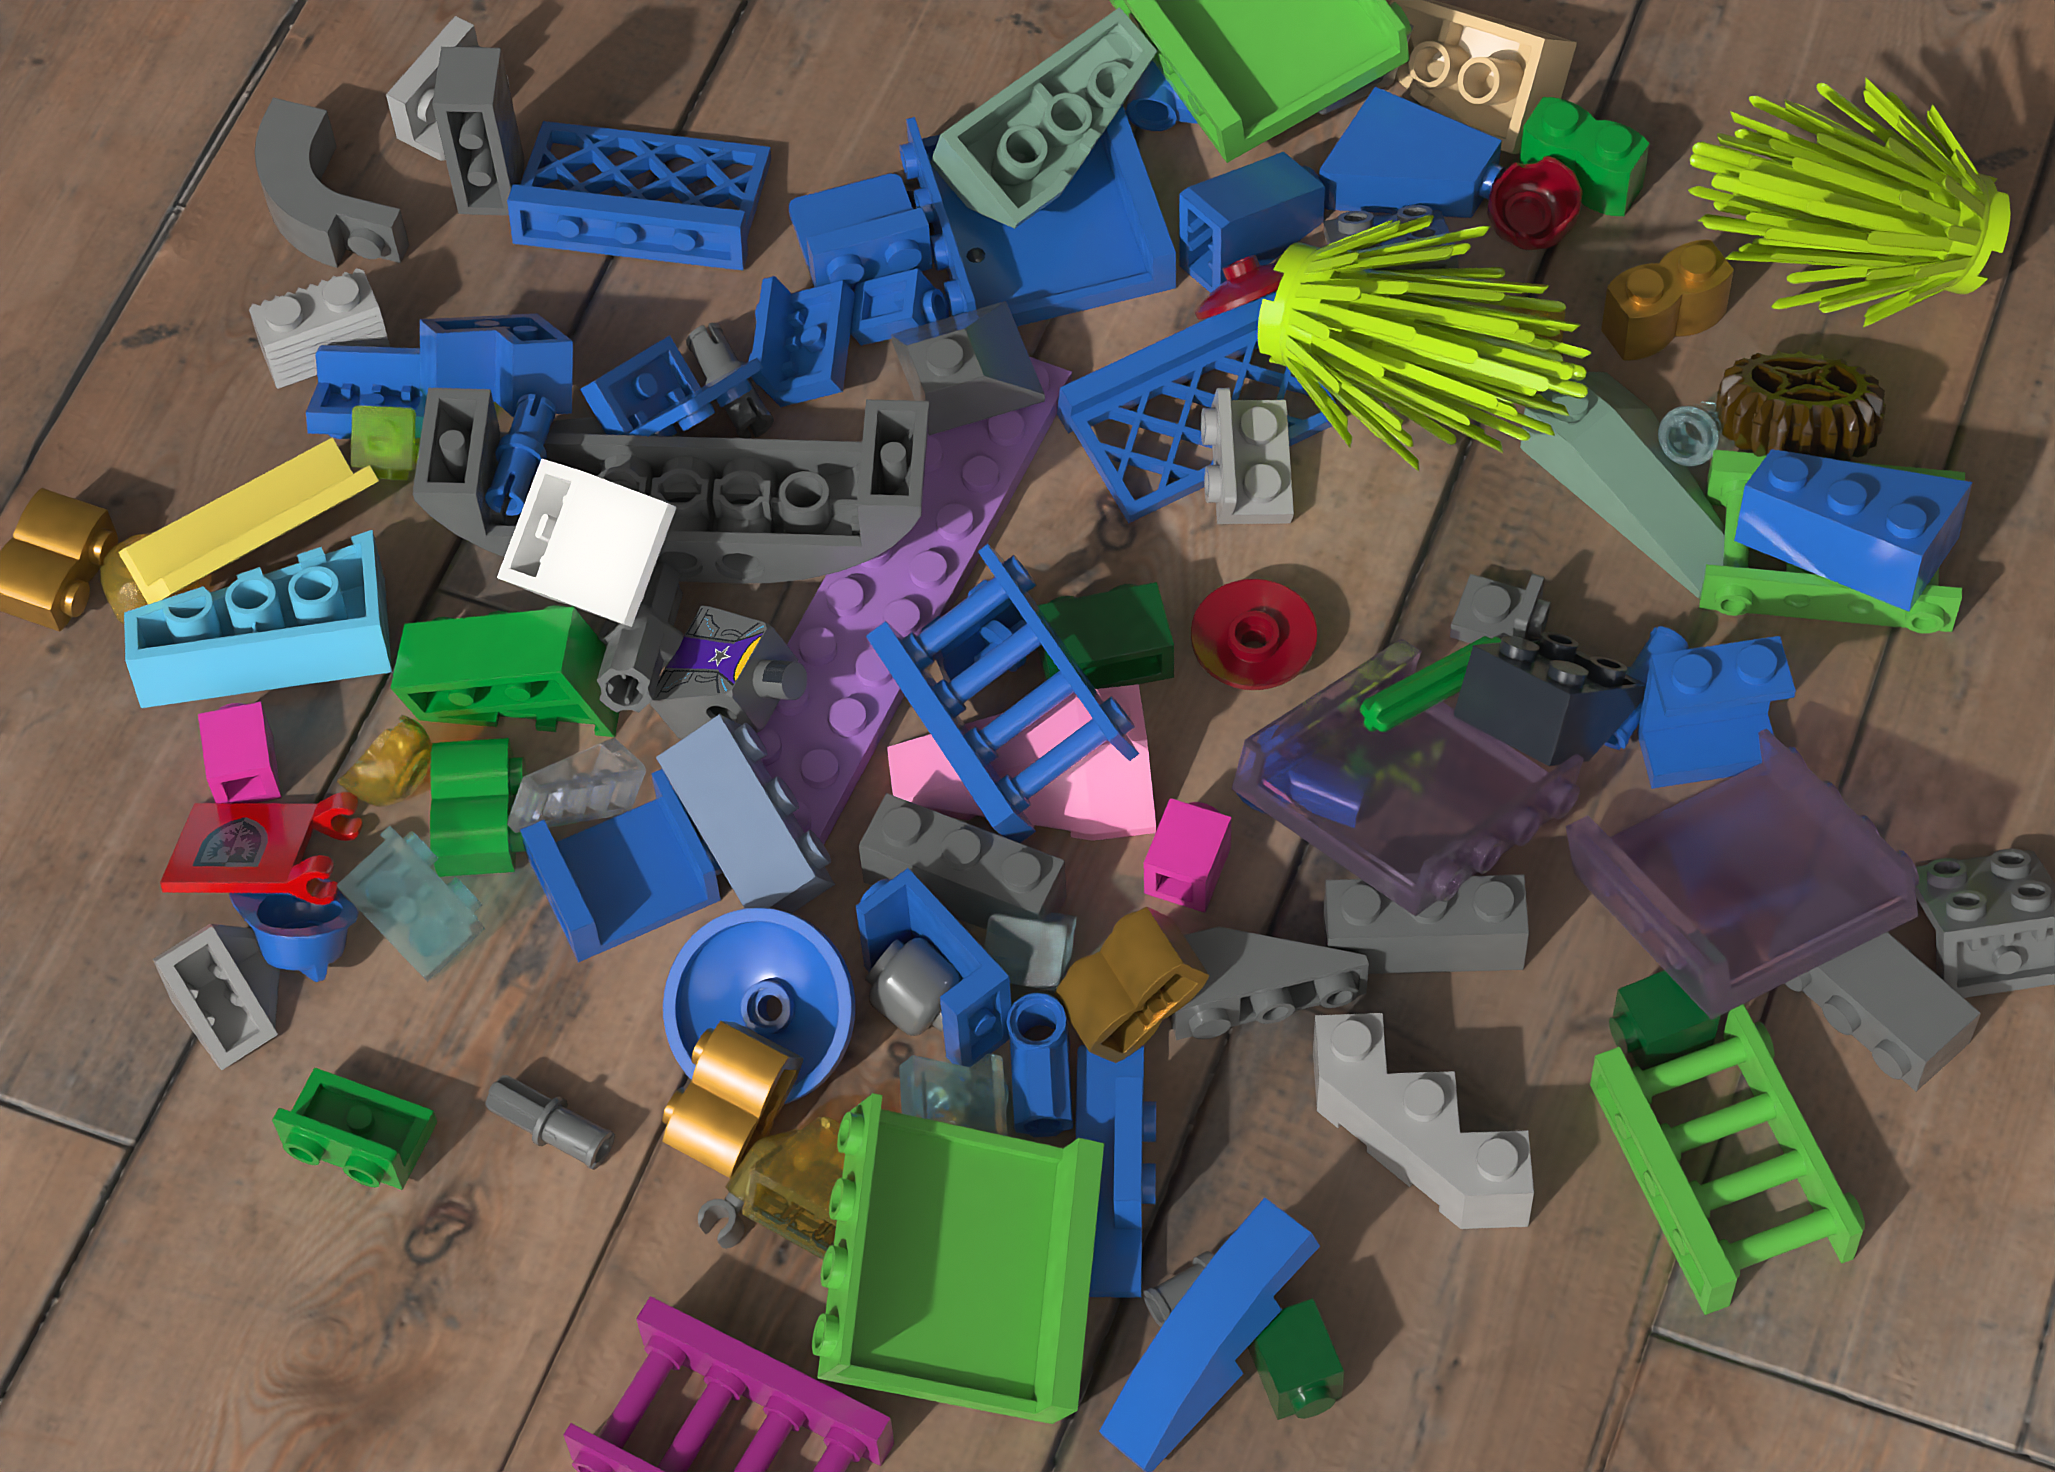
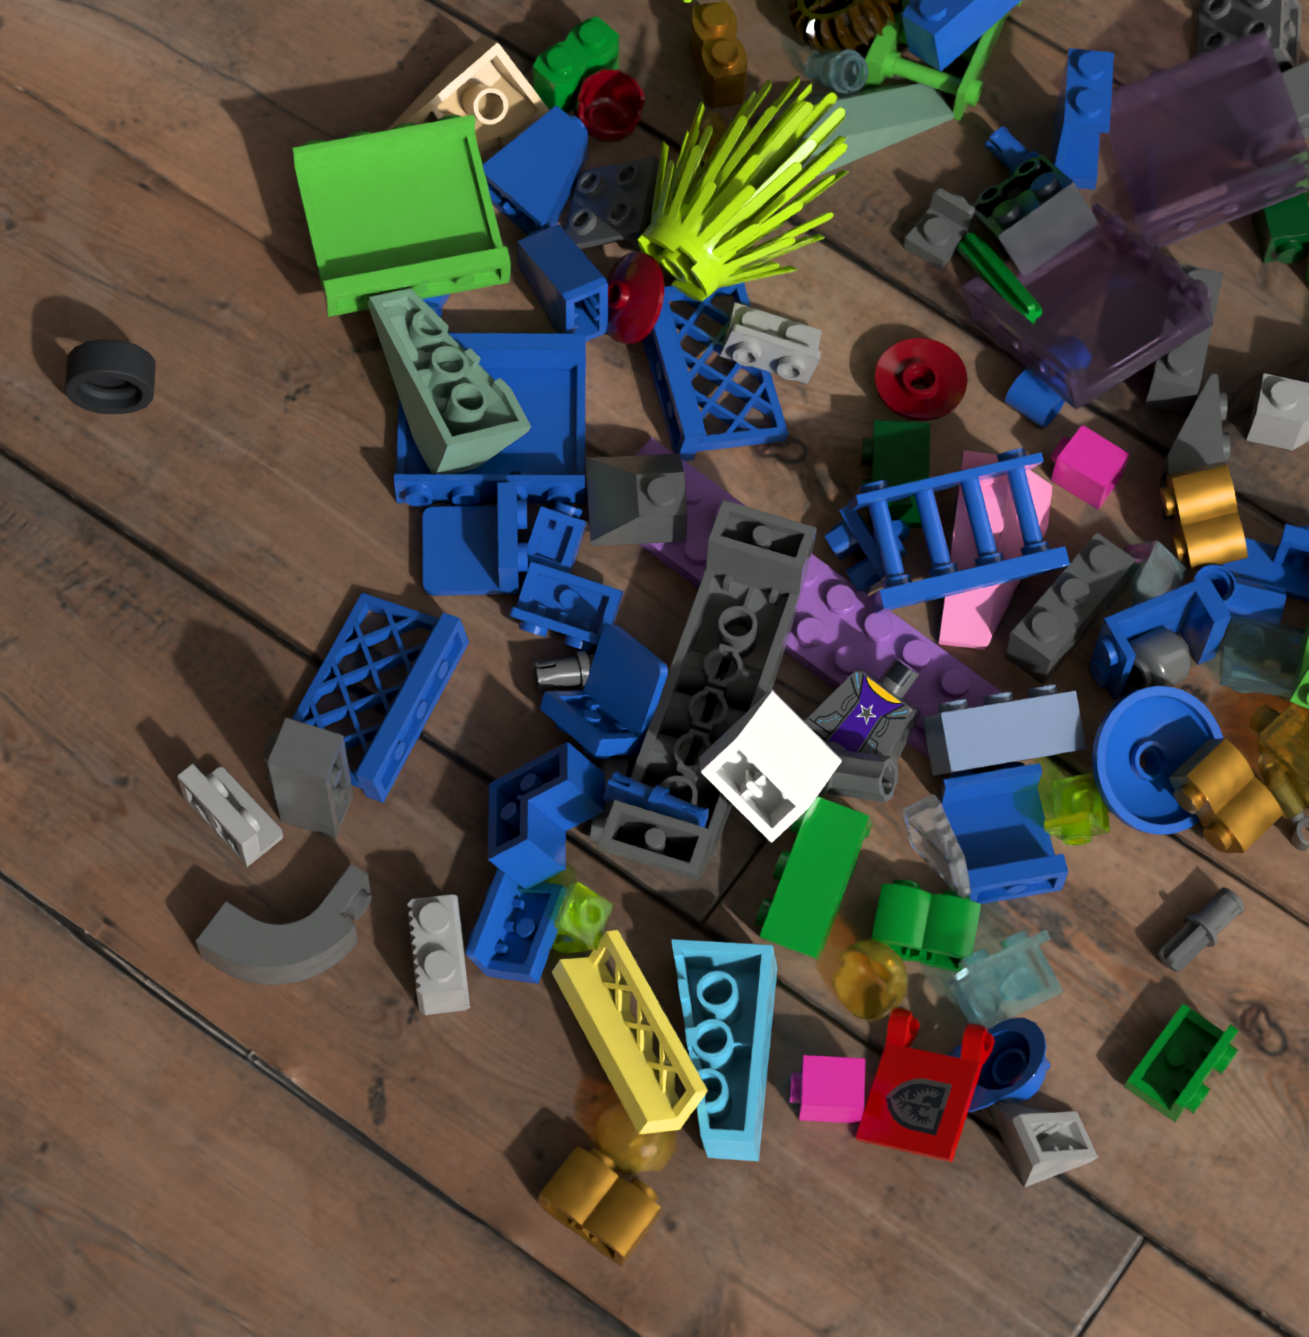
camera: 80 degrees left, 5 degrees up
(662, 942) = (1077, 811): none -> clear neon green bracket

